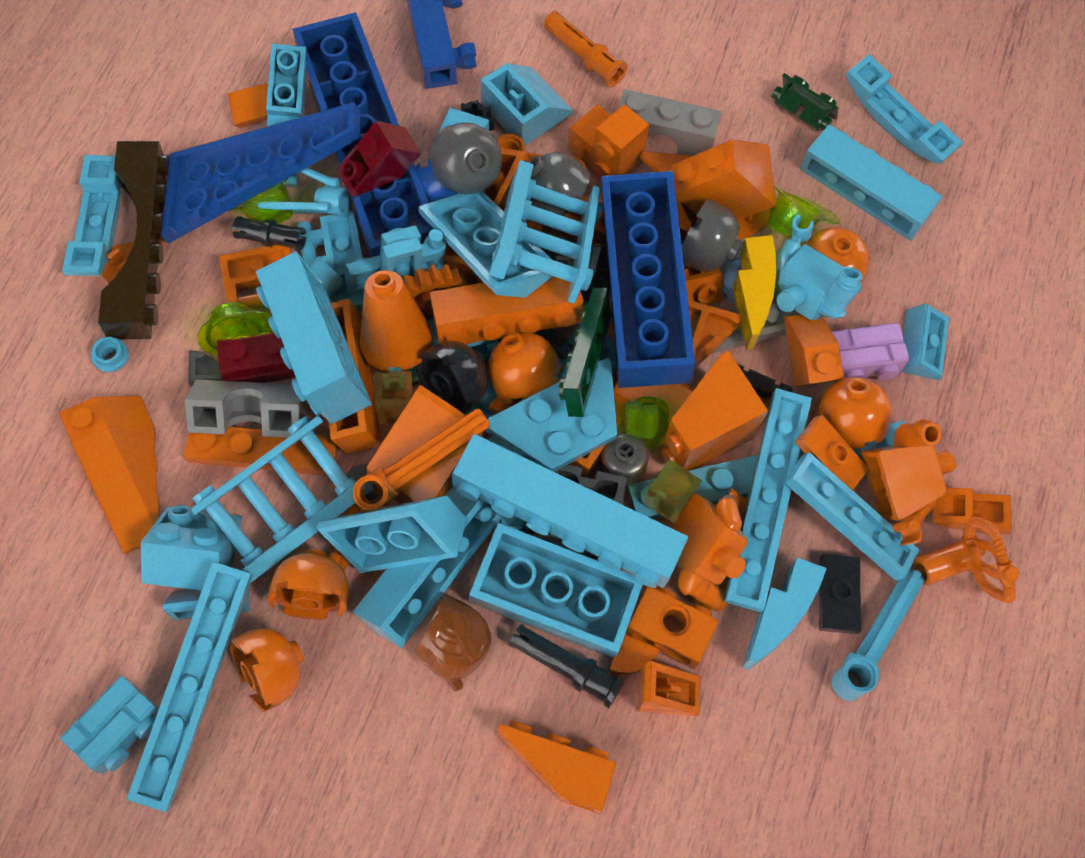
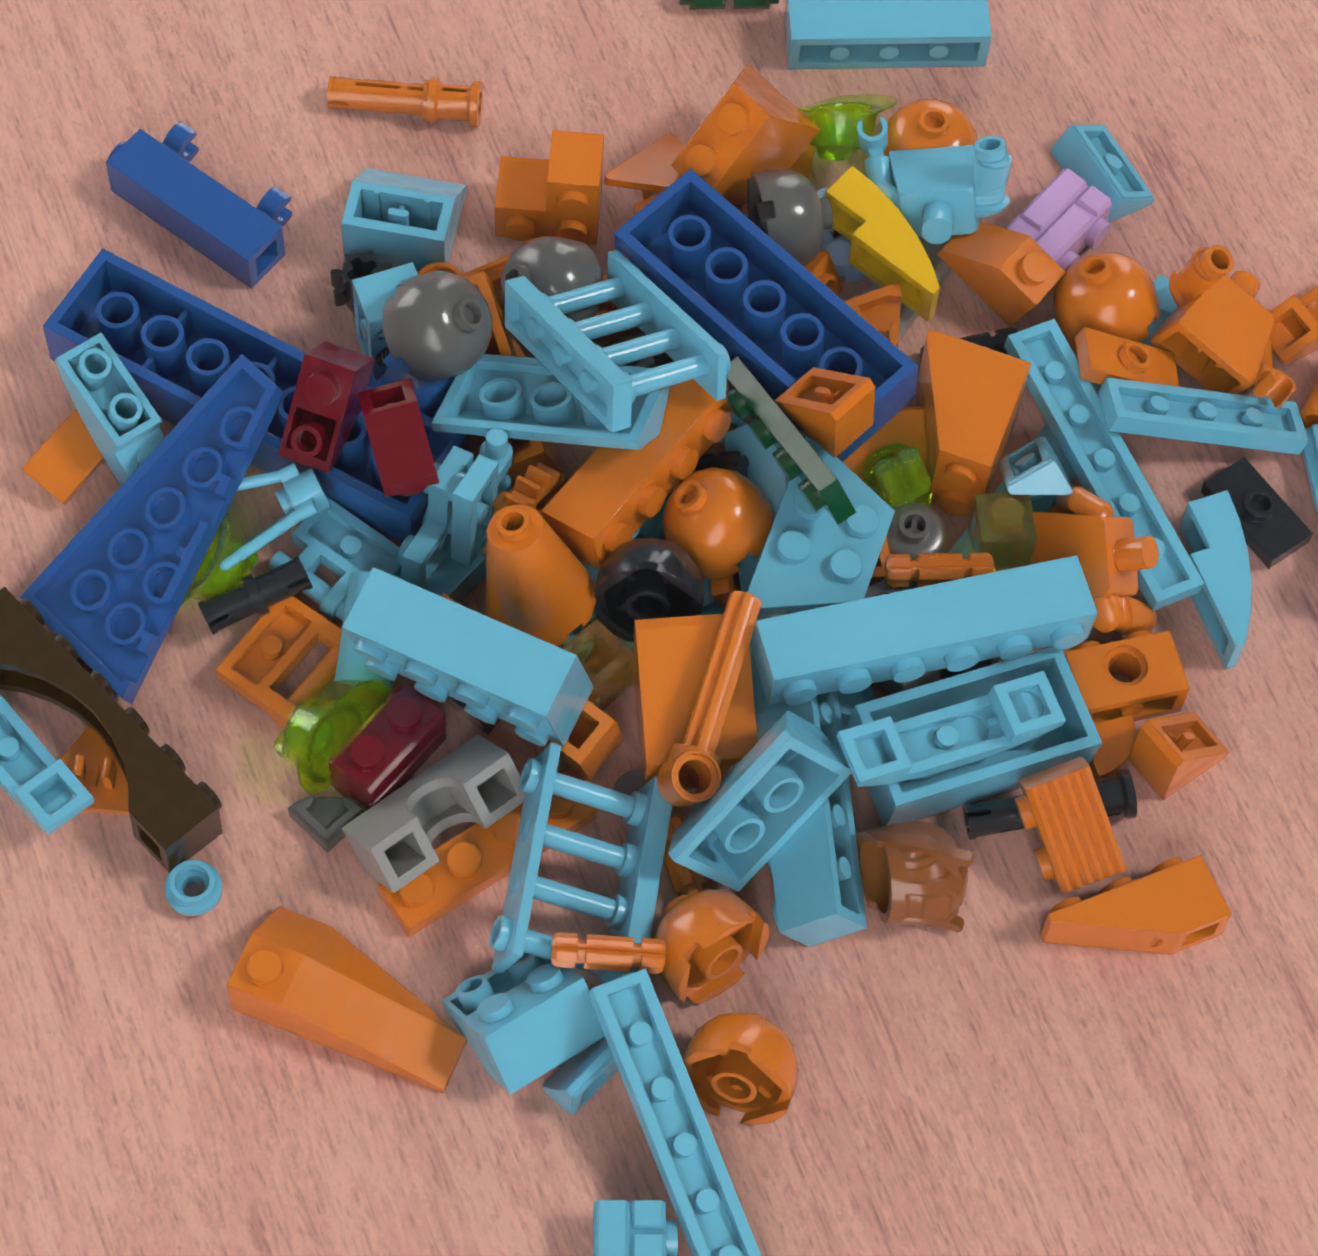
camera: 40 degrees left, 5 degrees down
(244, 549) = (608, 952): none -> orange axle
(388, 200) = (398, 438): none -> dark red slope
(528, 579) = (952, 735): none -> medium azure slope
(559, 684) = (1070, 825): none -> orange brick
(611, 484) = (935, 568): none -> orange axle
(620, 350) = (830, 407): none -> orange slope
(686, 123) = (632, 105): light grey arch -> none
(720, 474) = (1034, 470): none -> medium azure slope

